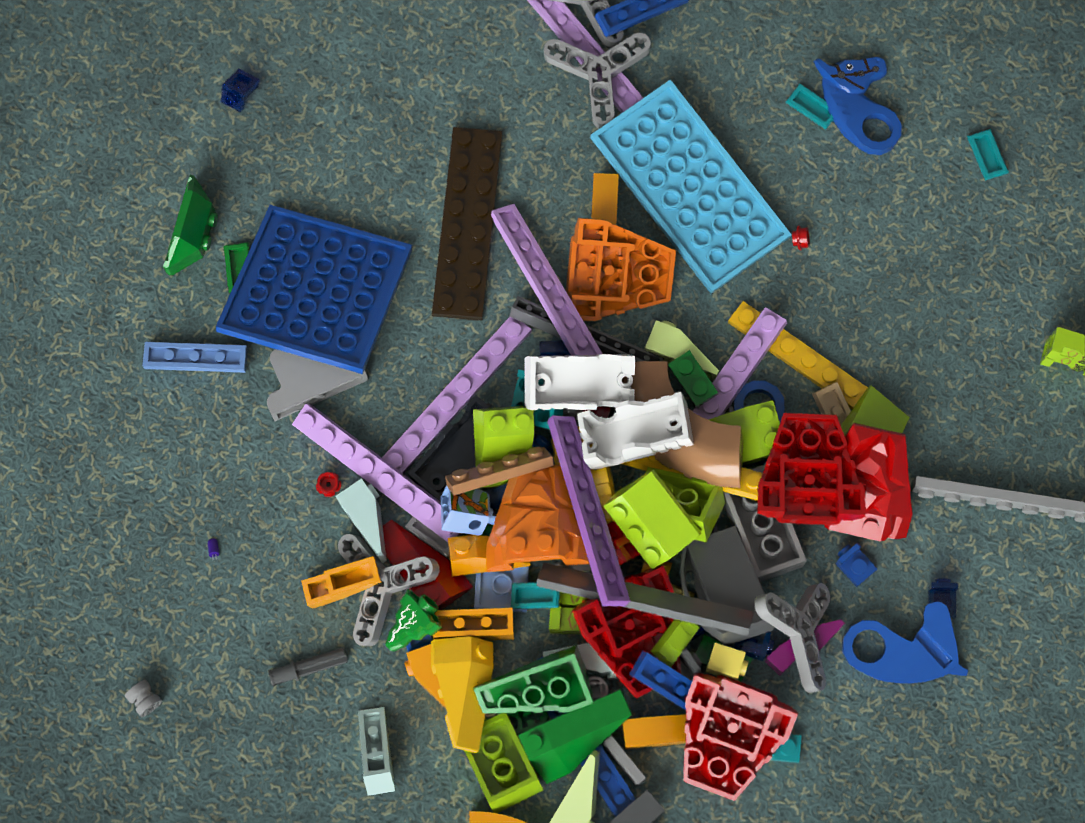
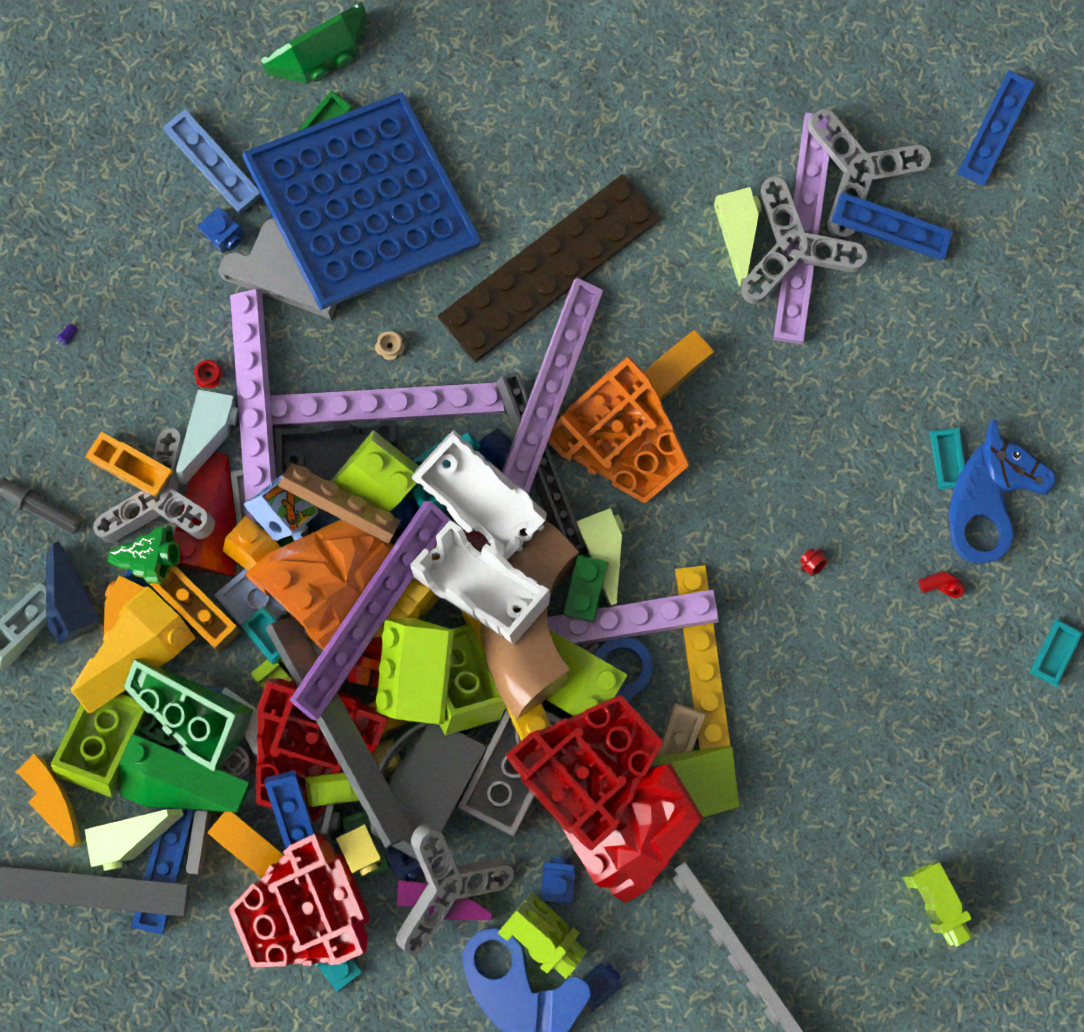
camera: 45 degrees right, 5 degrees up
(244, 391) = (221, 230): none -> blue bracket
(388, 702) = (67, 604): none -> dark blue slope
(421, 352) = (386, 338): none -> tan plate
(552, 90) = (738, 222): none -> yellowish green slope
(690, 186) = (765, 423): medium azure plate -> none
(884, 599) = (545, 936): none -> lime hips
(885, 177) = (943, 582): none -> red arm

